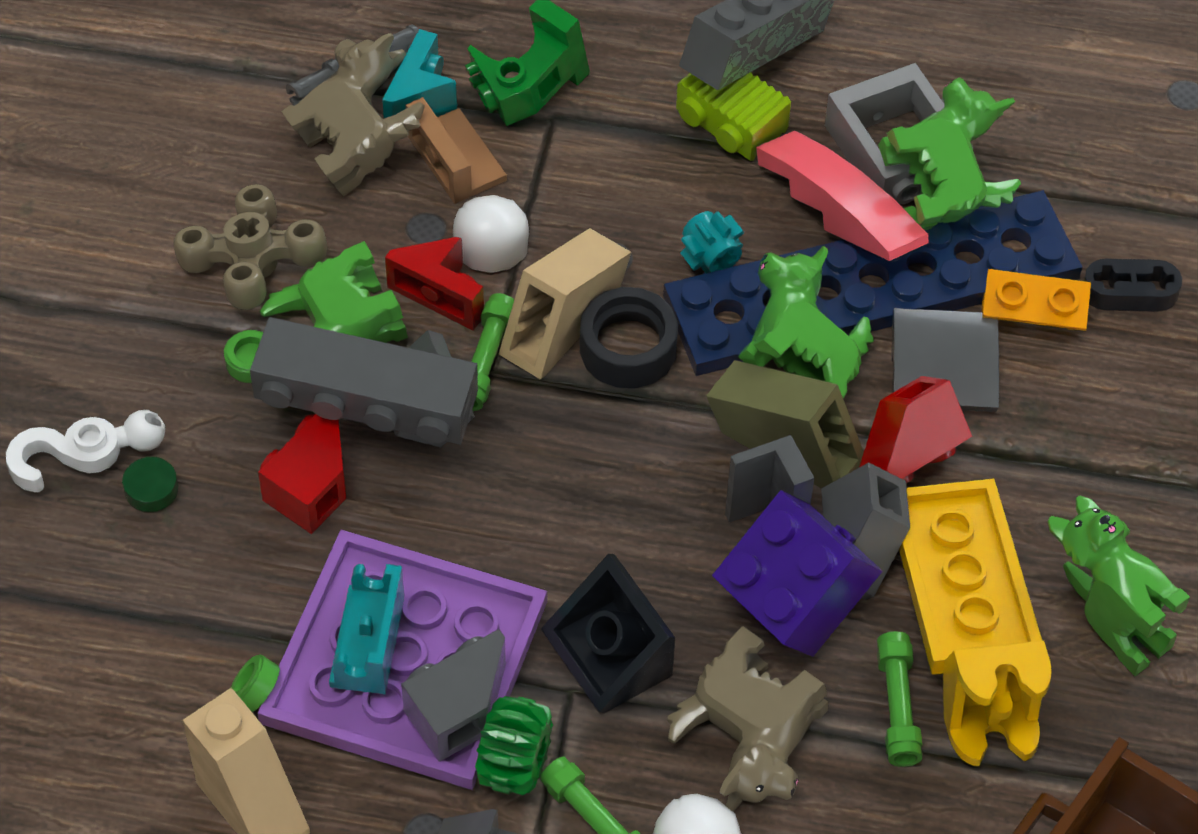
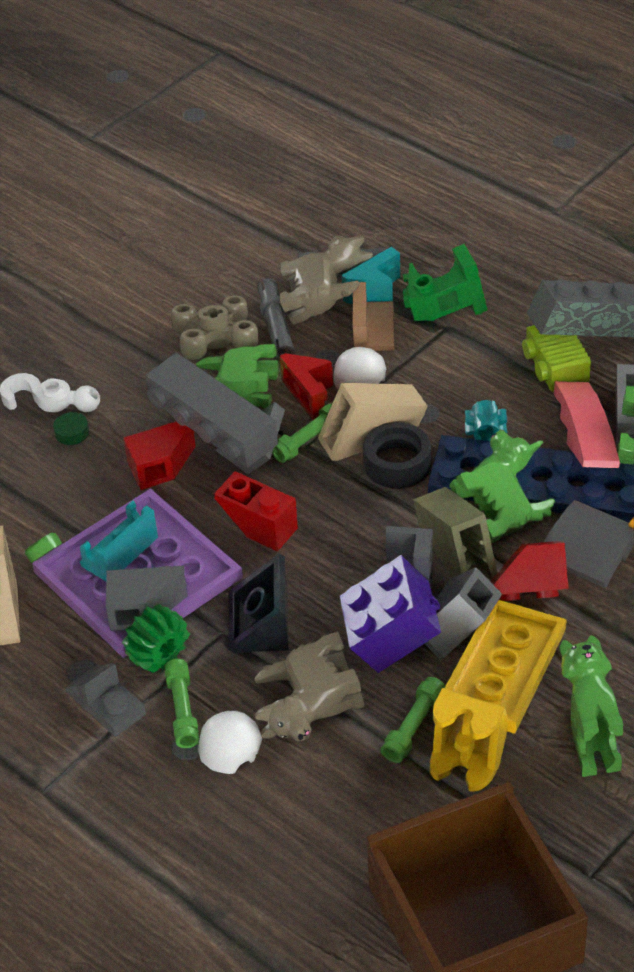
camera: 35 degrees right, 10 degrees down
(309, 186) = (275, 317): none -> dark grey pin
(510, 497) = (258, 510): none -> red slope

